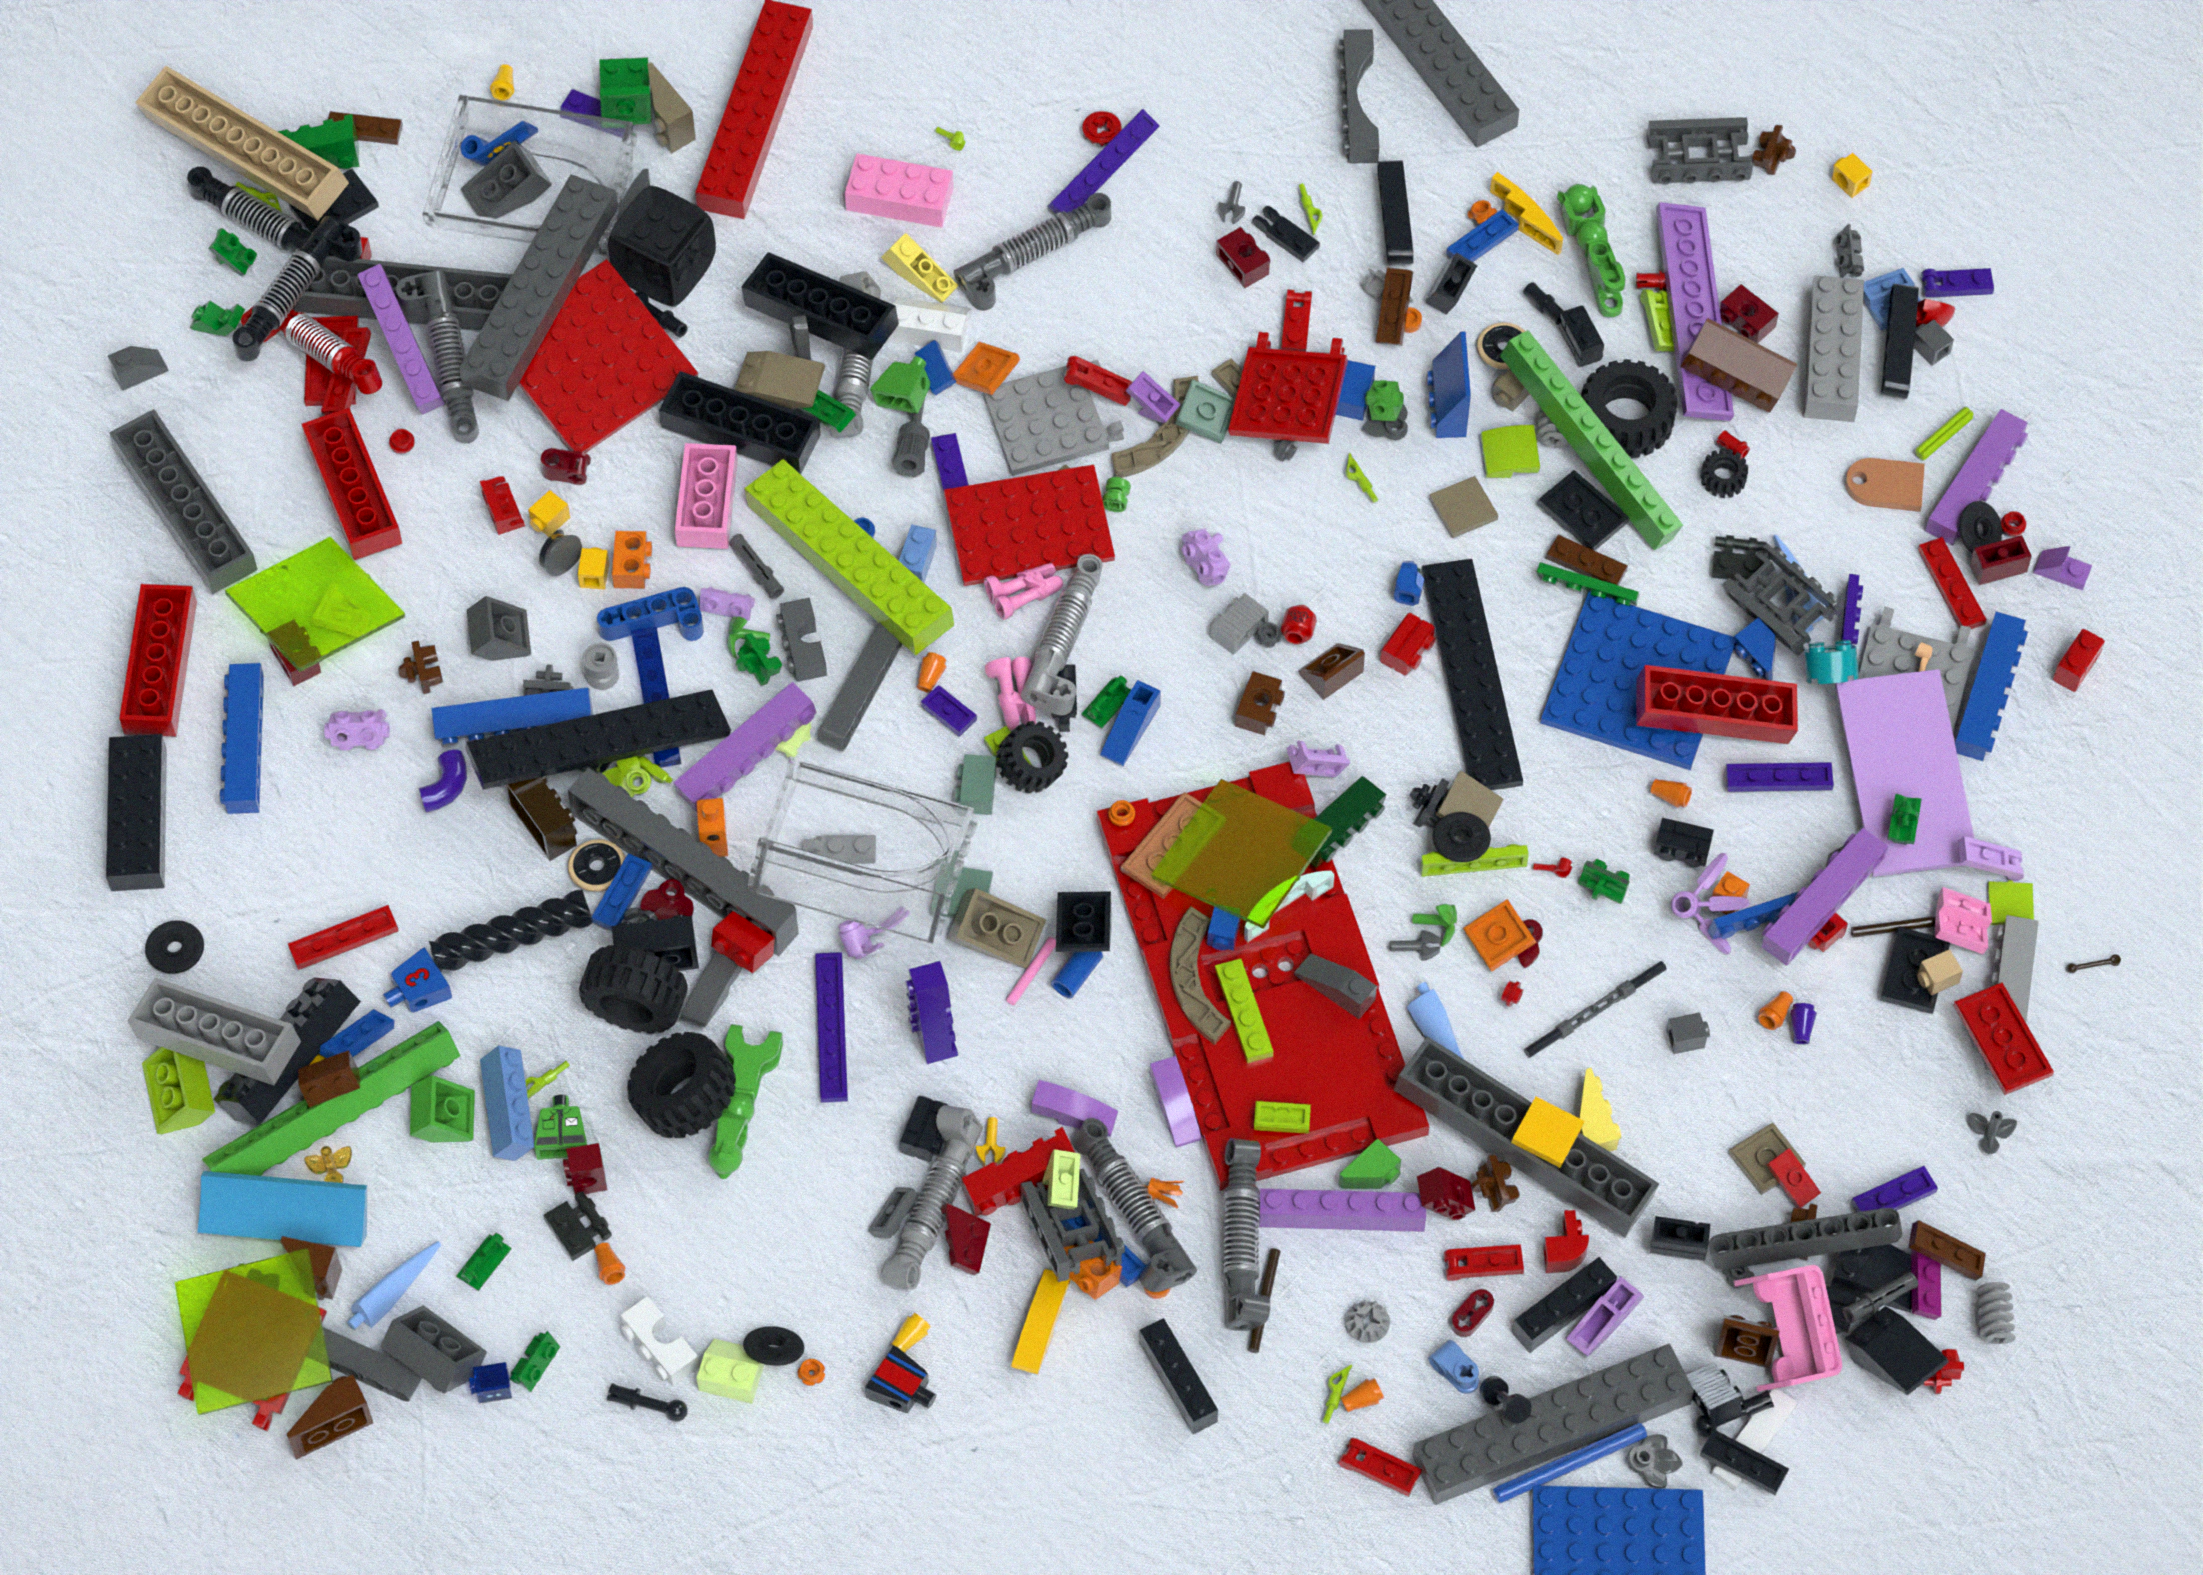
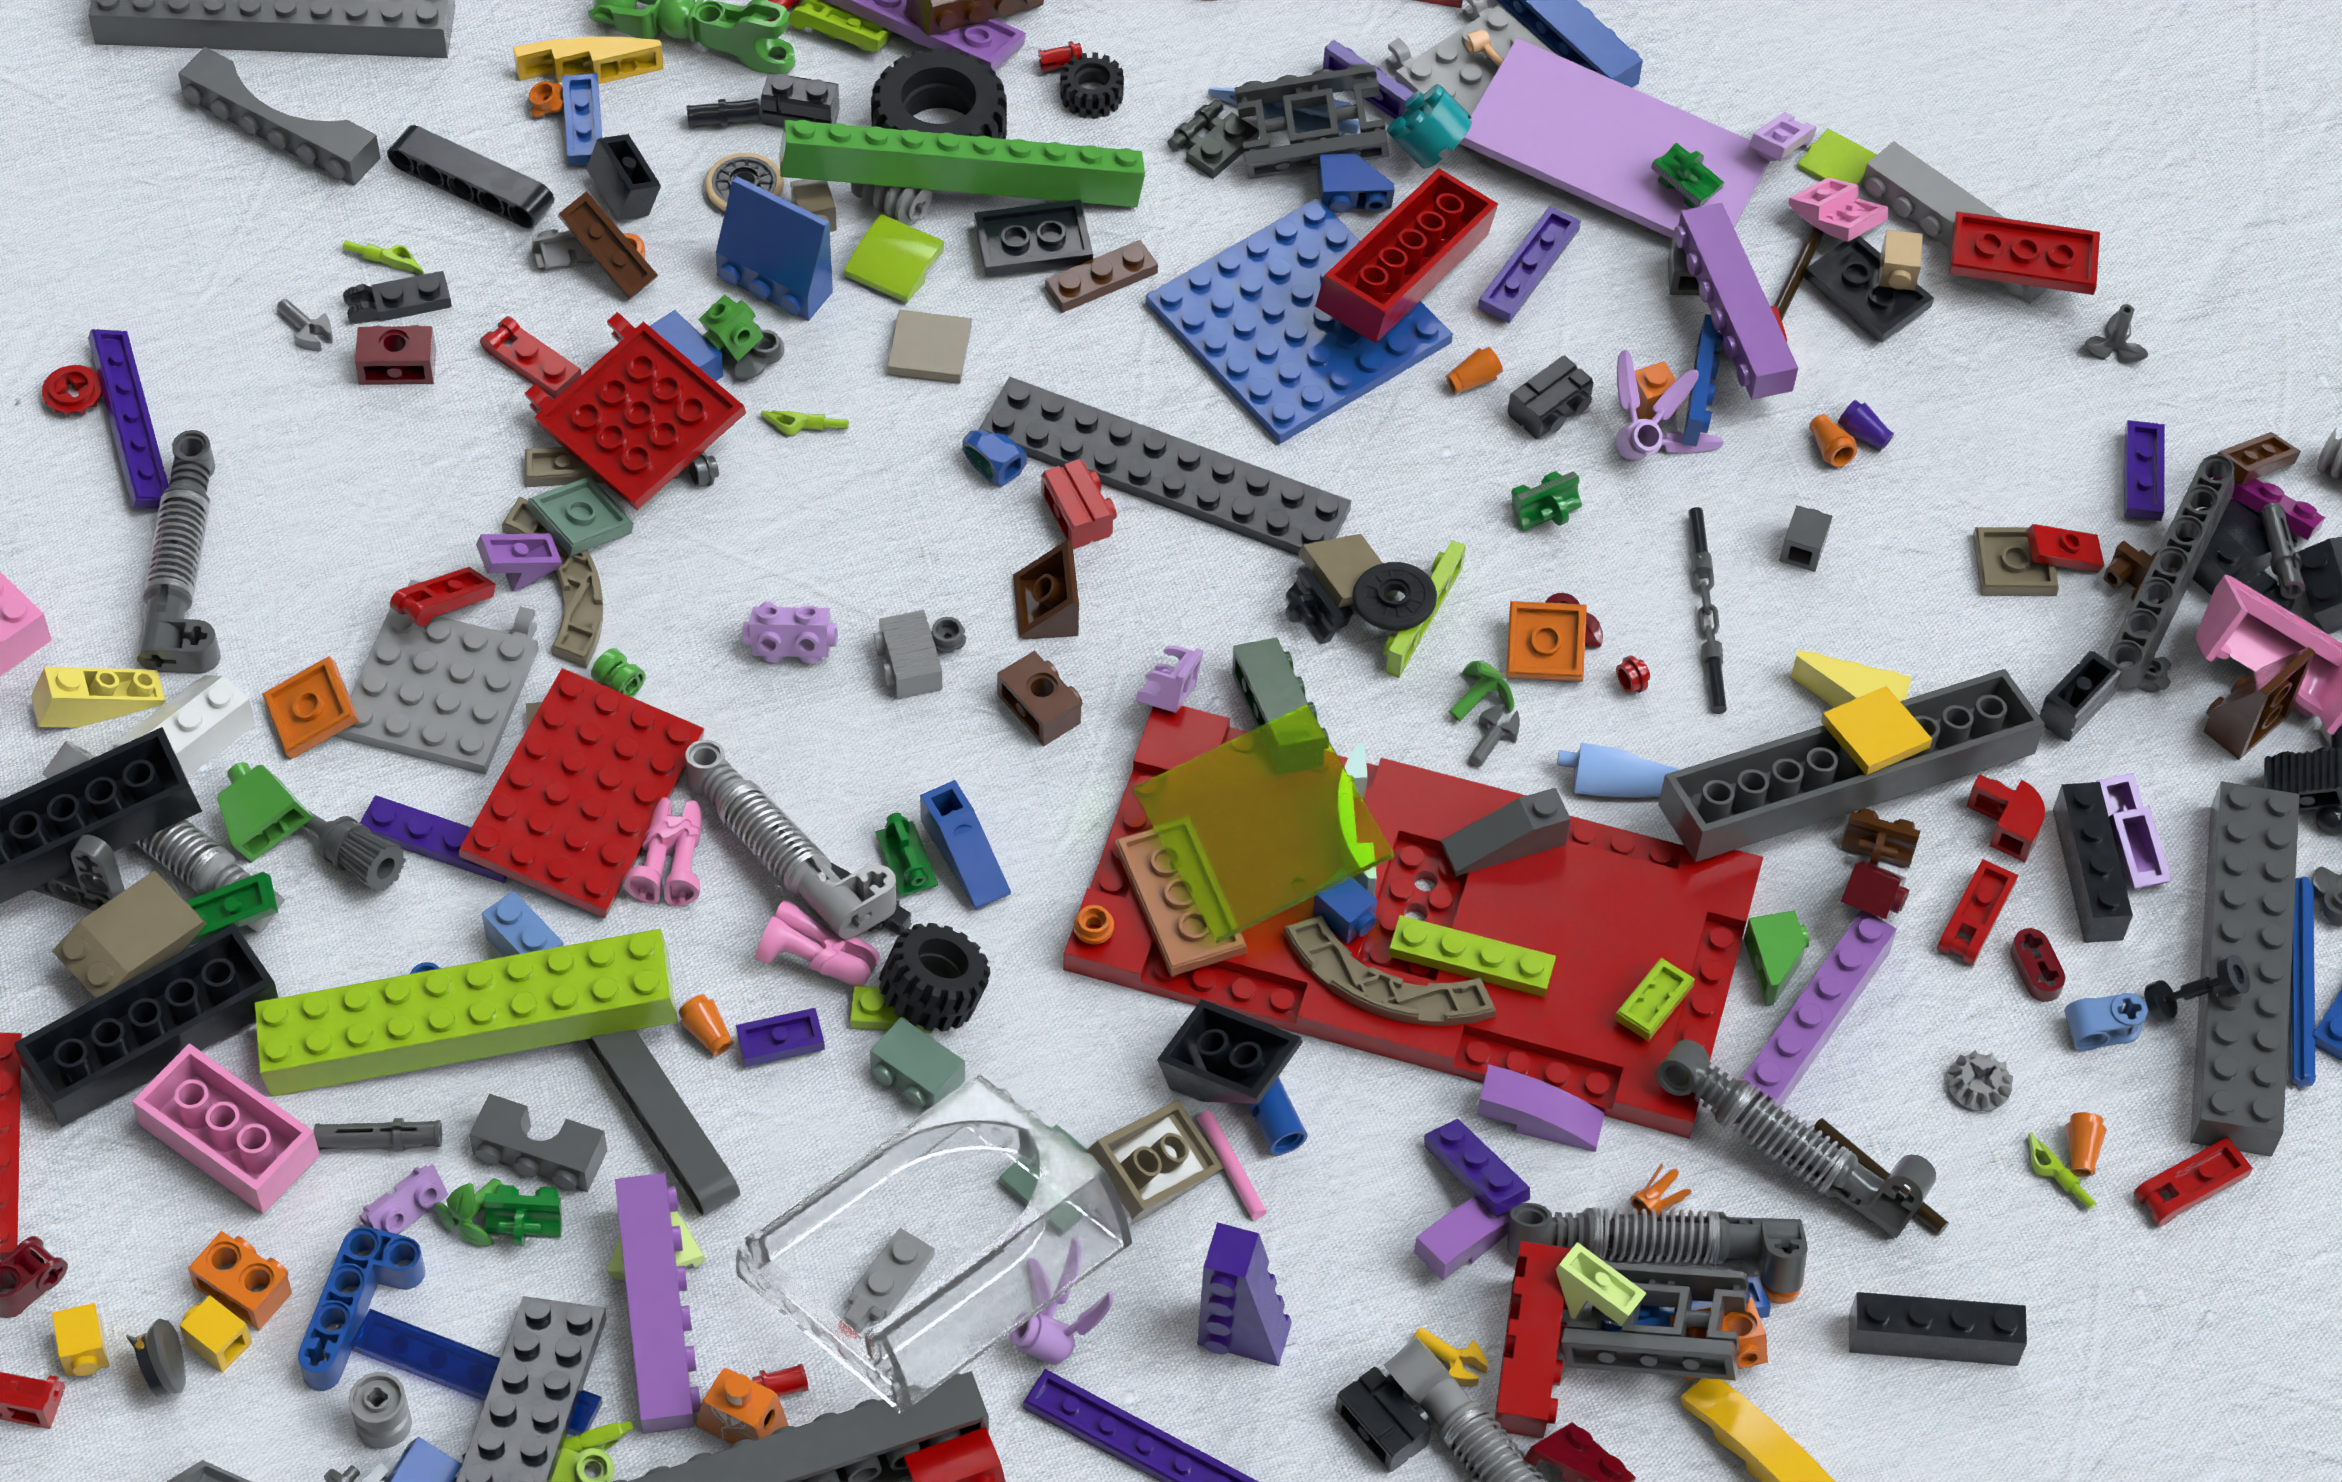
camera: 60 degrees left, 5 degrees down
(746, 835) = (784, 1381): none -> red pin
(936, 367) = (279, 759): blue tile -> none
(1111, 1088) = (1477, 1167): none -> dark purple plate
(1298, 624) = (963, 593): red head -> none
(1562, 868) = (1496, 534): red hand -> none
(1576, 582) = (1126, 295): green plate -> none
(2114, 961) = (1972, 117): dark brown hinge -> none

